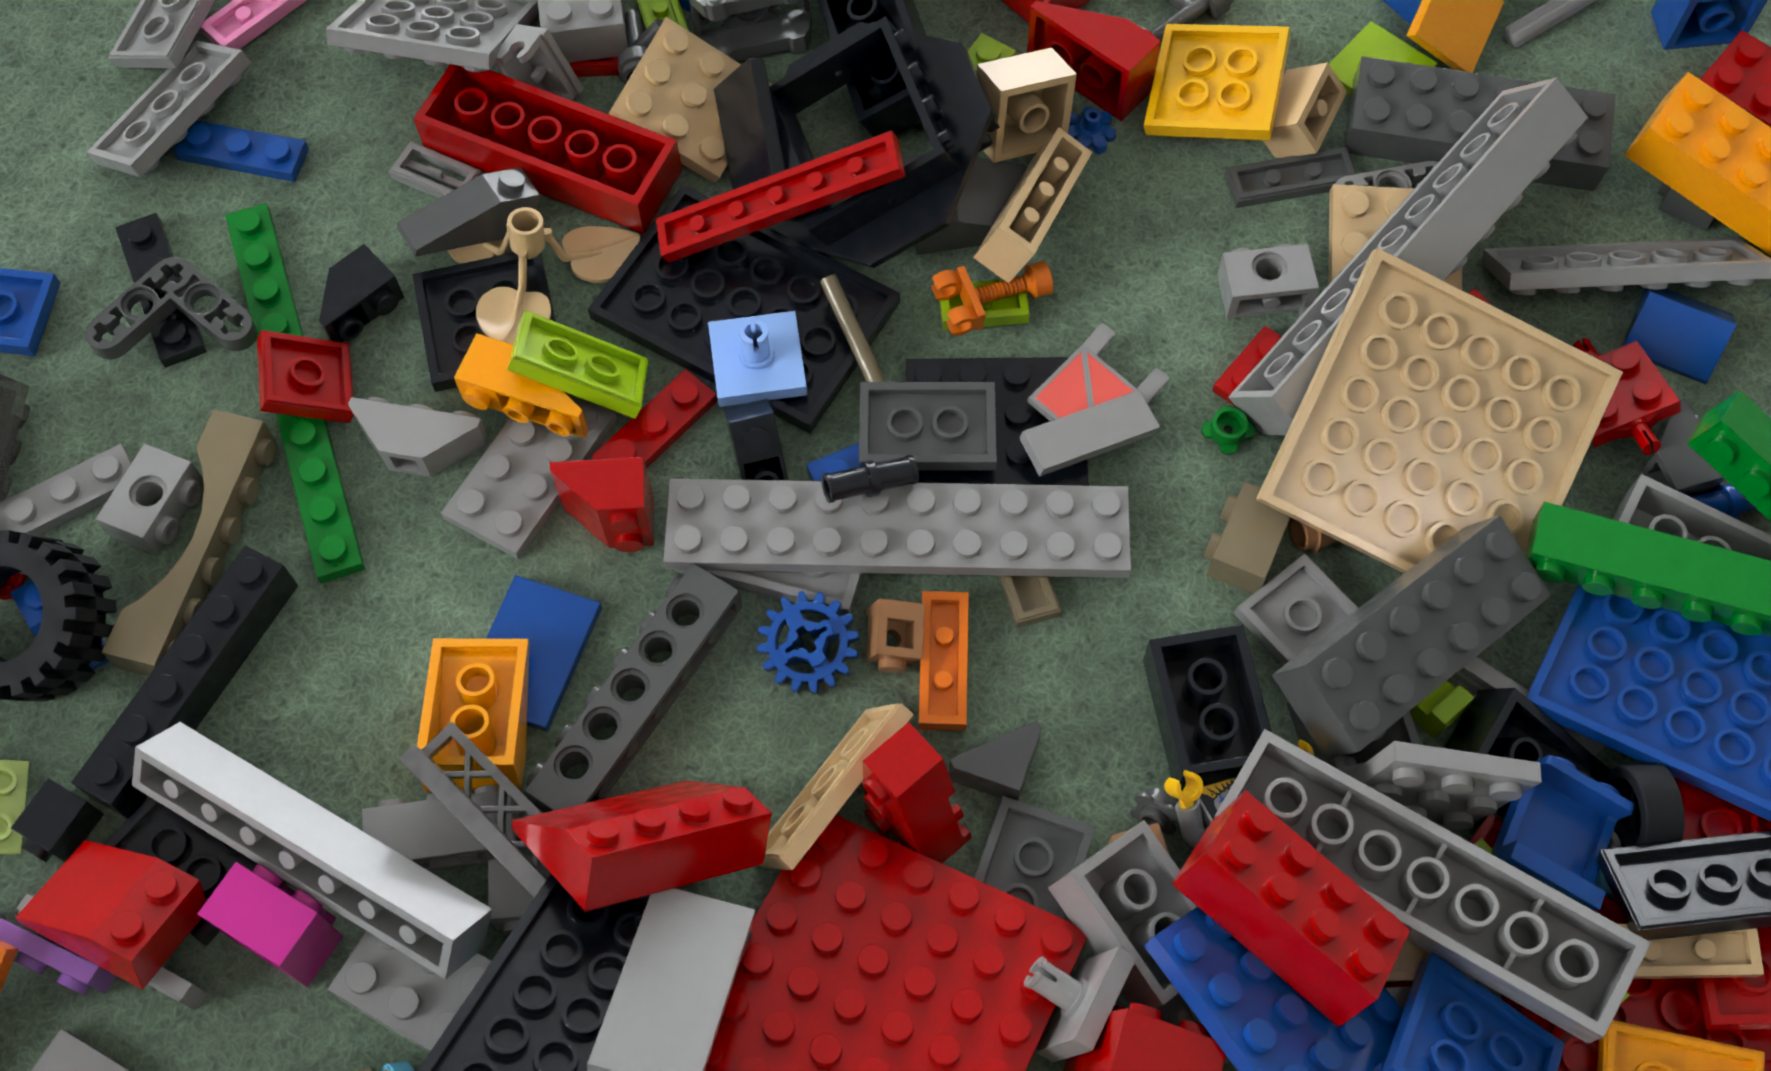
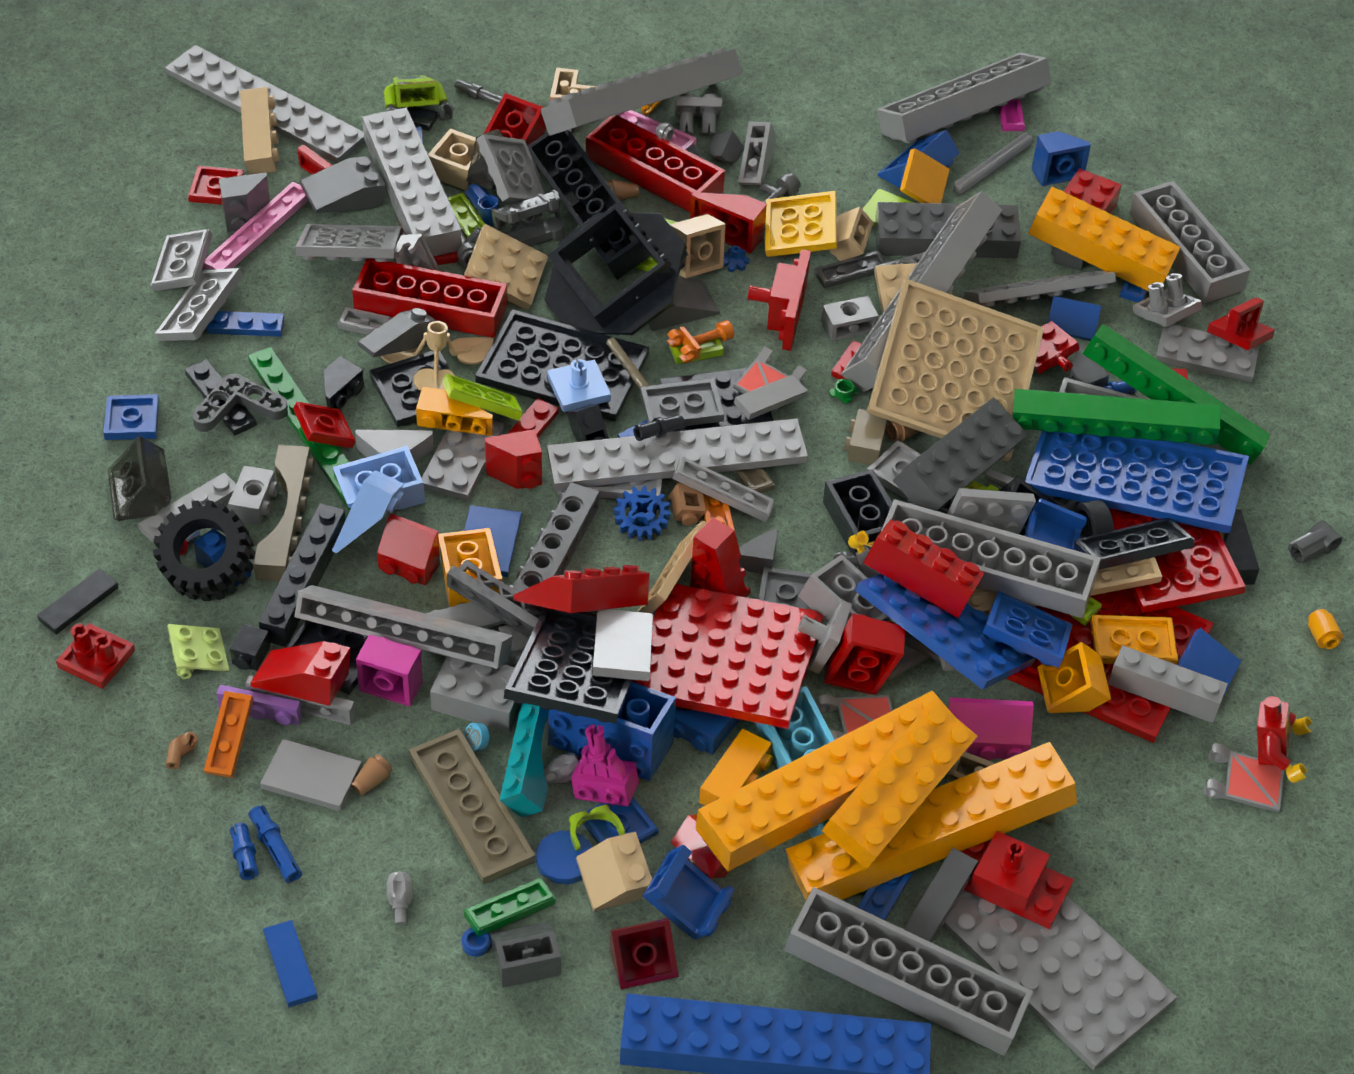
camera: 15 degrees left, 15 degrees down
(312, 576) = (374, 500): none -> light blue slope
(365, 511) = (395, 464): none -> light blue slope
(373, 666) = (408, 550): none -> slope
(749, 124) = (547, 276): black tile -> none
(780, 197) = (575, 301): red plate -> none
(963, 617) = (723, 489): none -> light grey tile
(1033, 205) = (714, 293): tan brick -> none
(1159, 228) = (785, 298): none -> red brick

